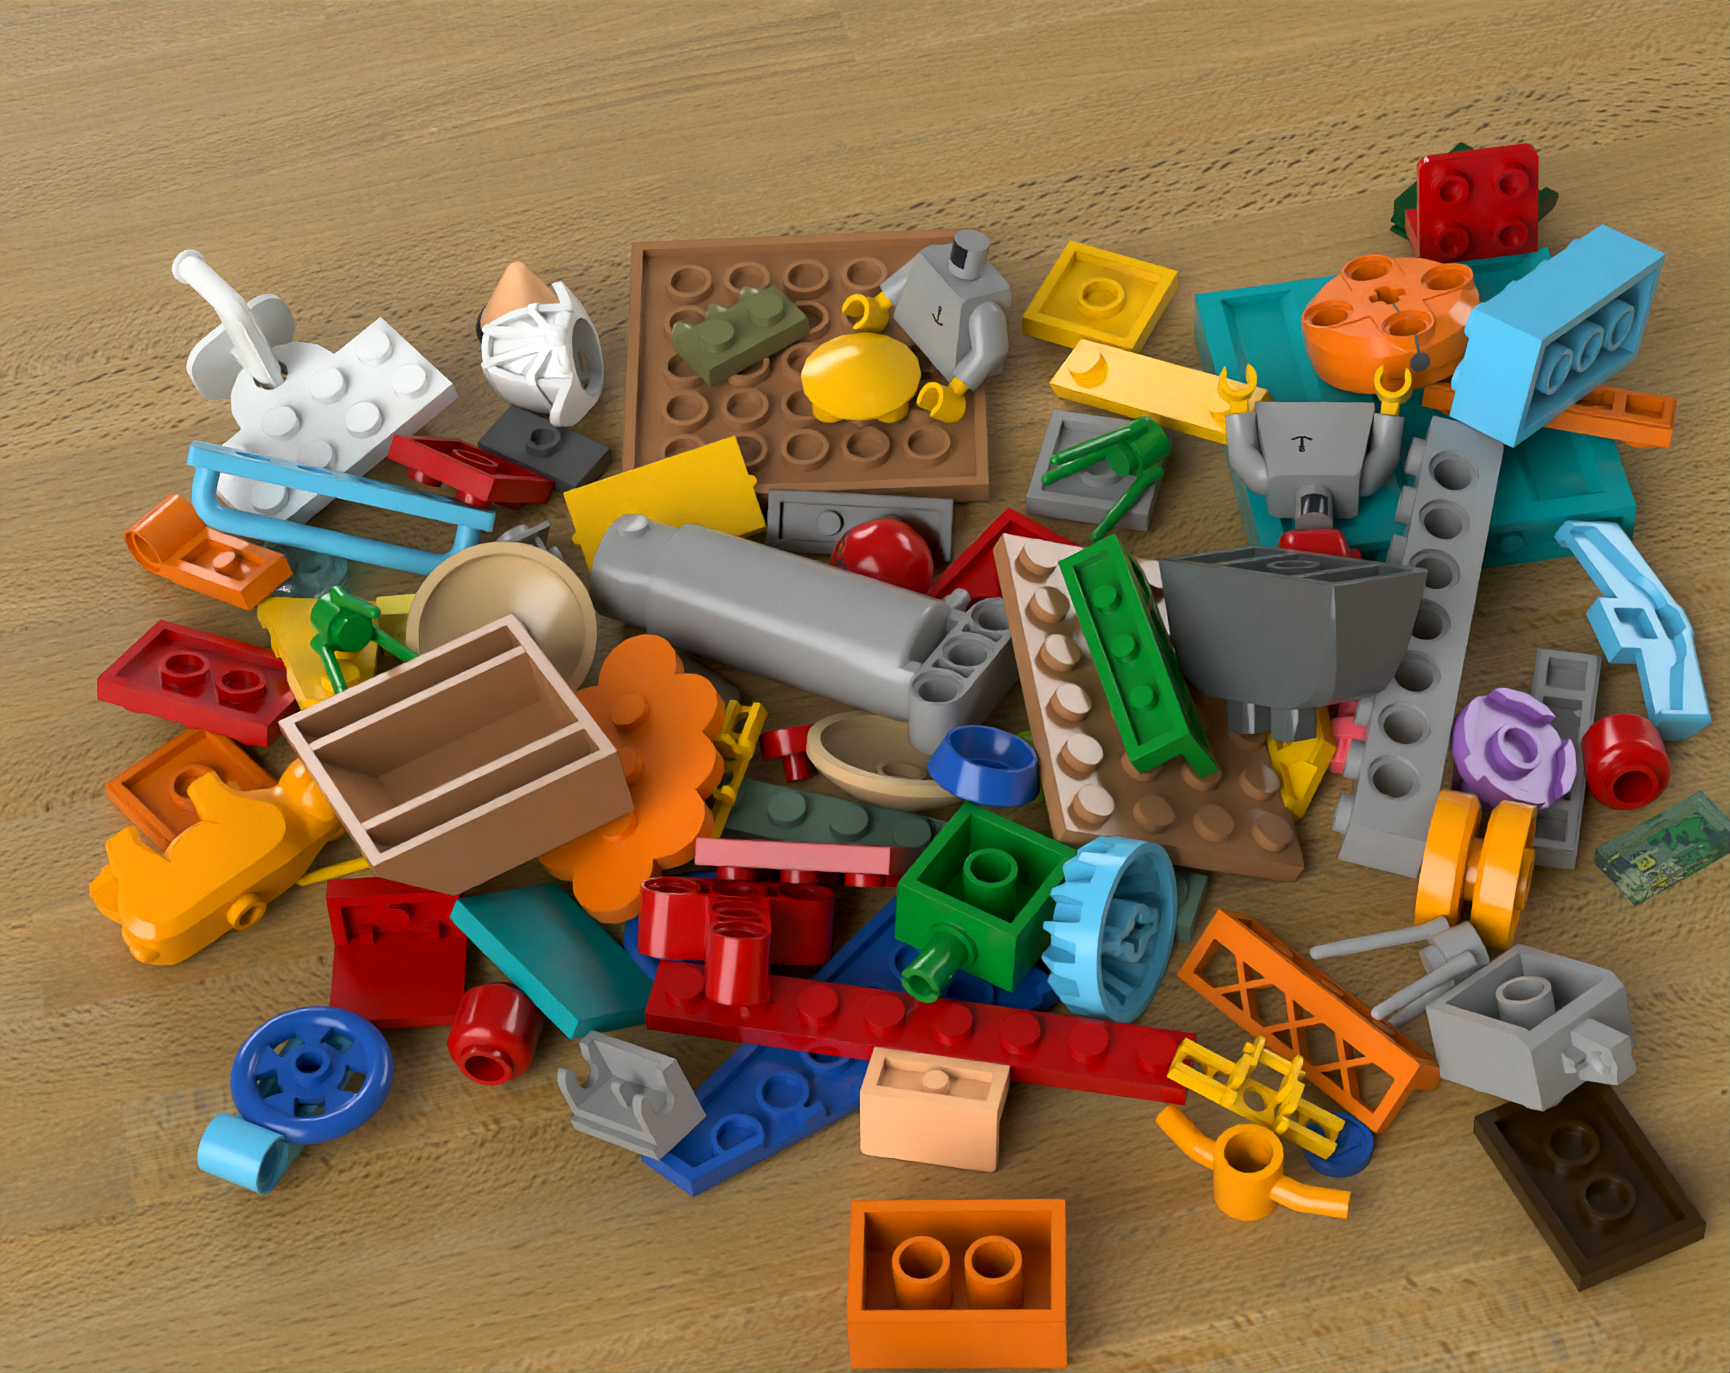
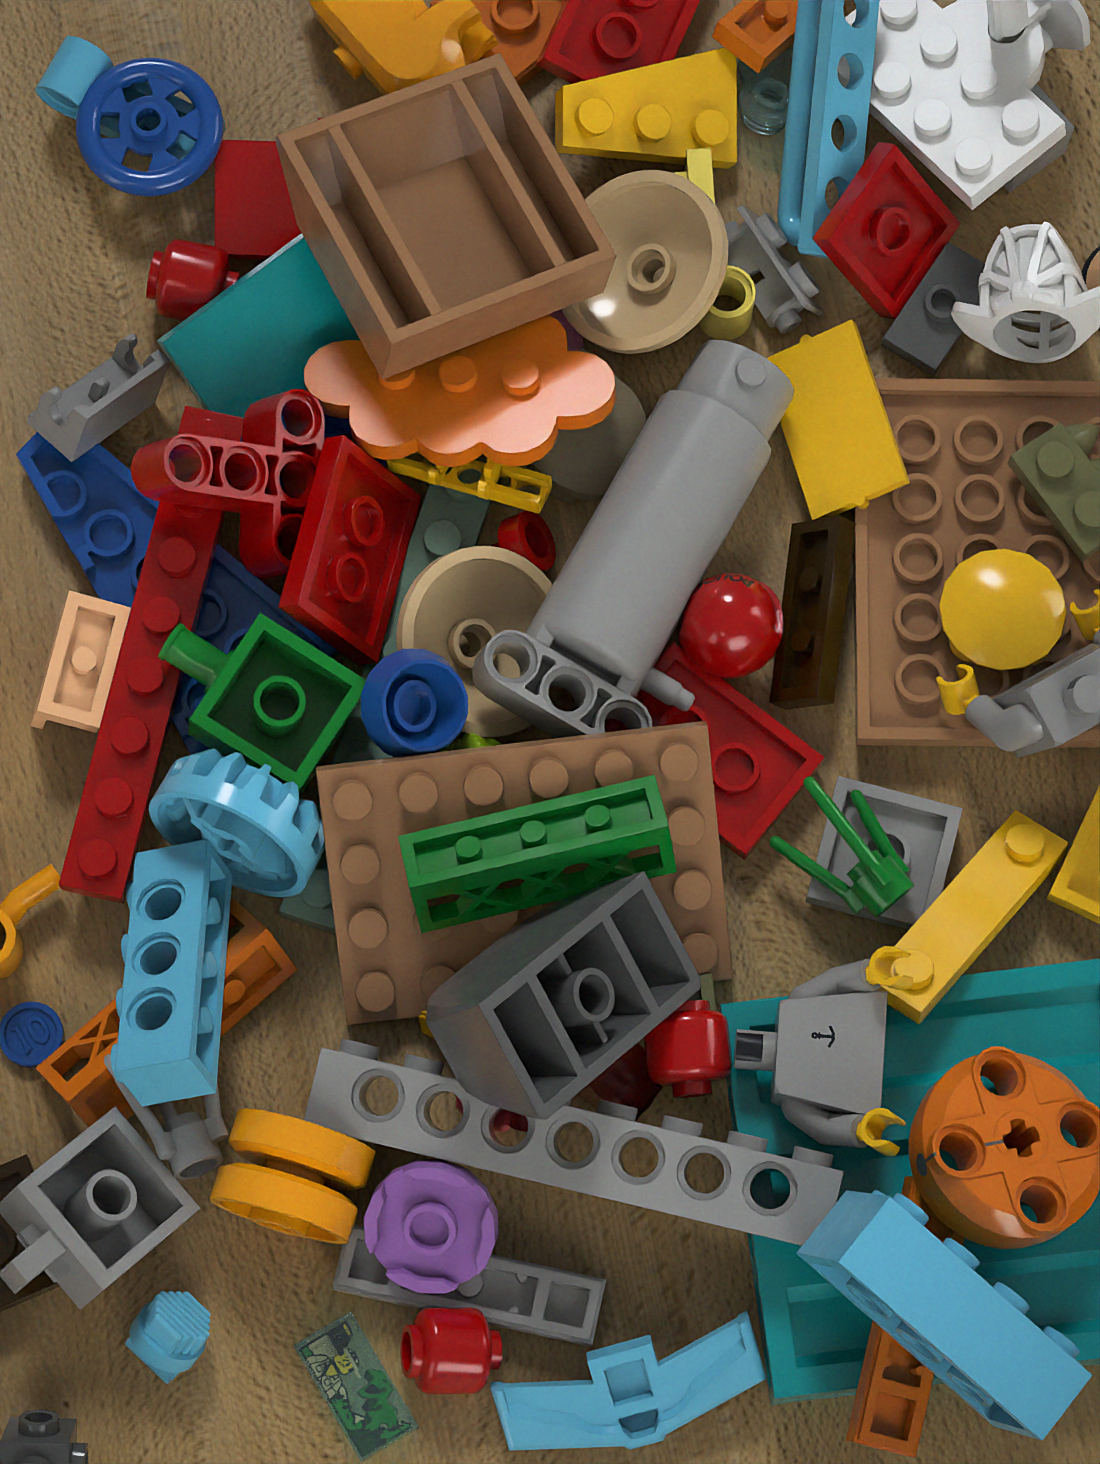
camera: 85 degrees right, 25 degrees up
(347, 626) = (640, 114): green plant -> none
(1286, 1098) = (66, 936): yellow piece -> none
(1384, 957) = (173, 973): none -> medium azure brick
(1651, 987) = (170, 1333): none -> medium azure piece

